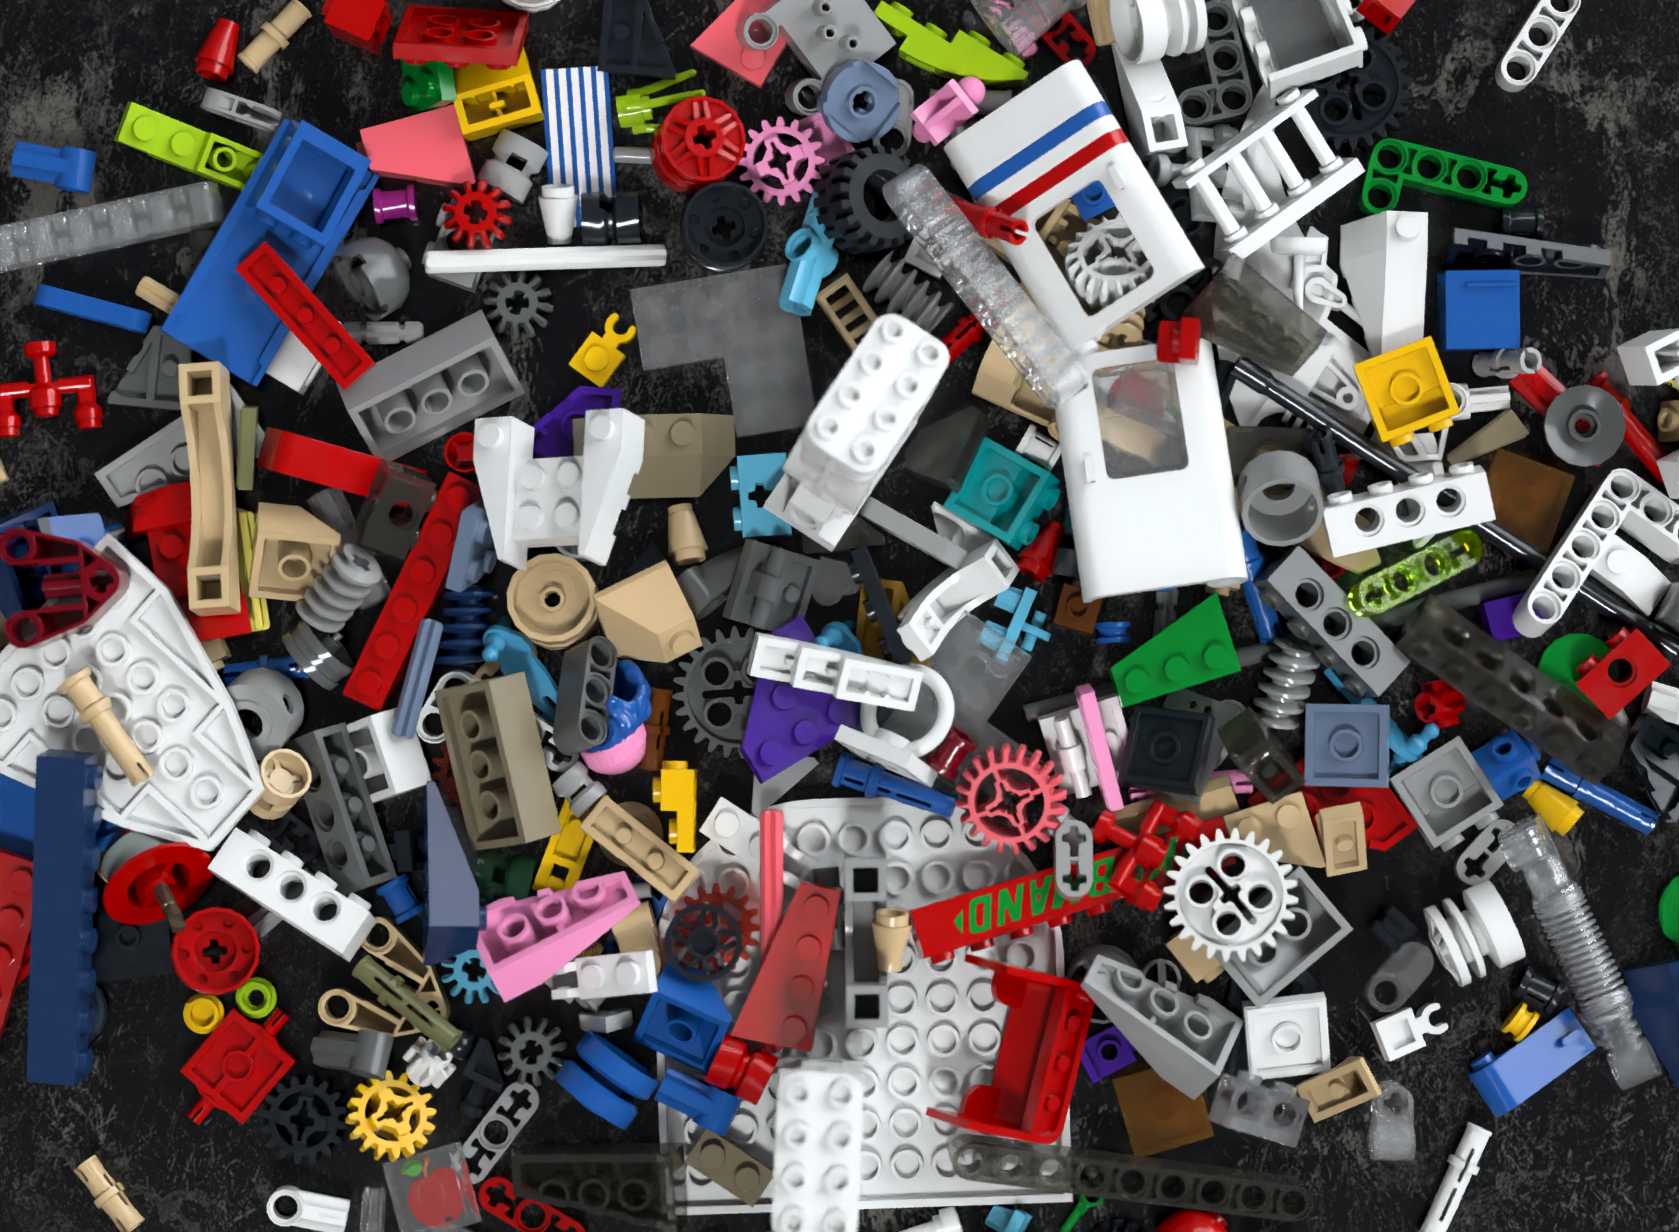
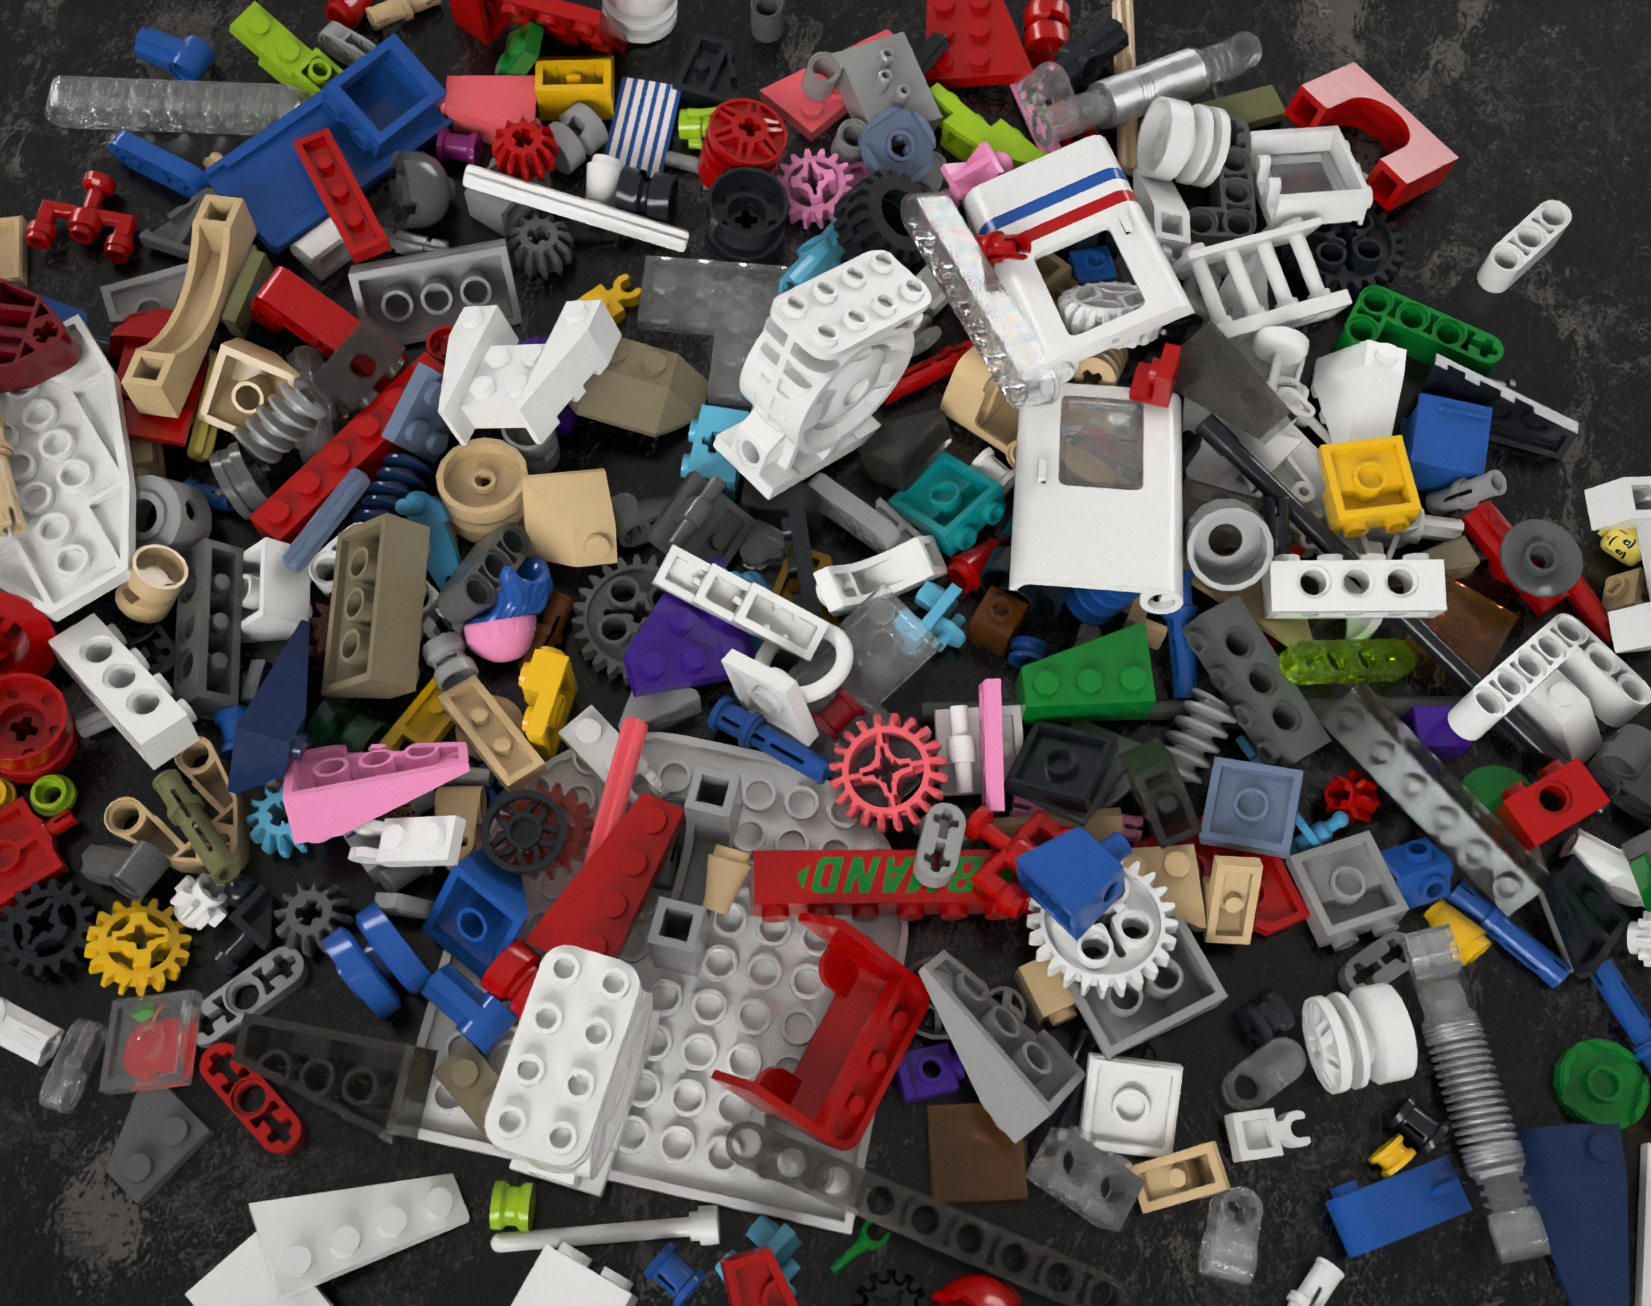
camera: 10 degrees right, 20 degrees down
(685, 537) = (632, 470): tan cone -> none
(1199, 867) = (1075, 877): none -> blue torso

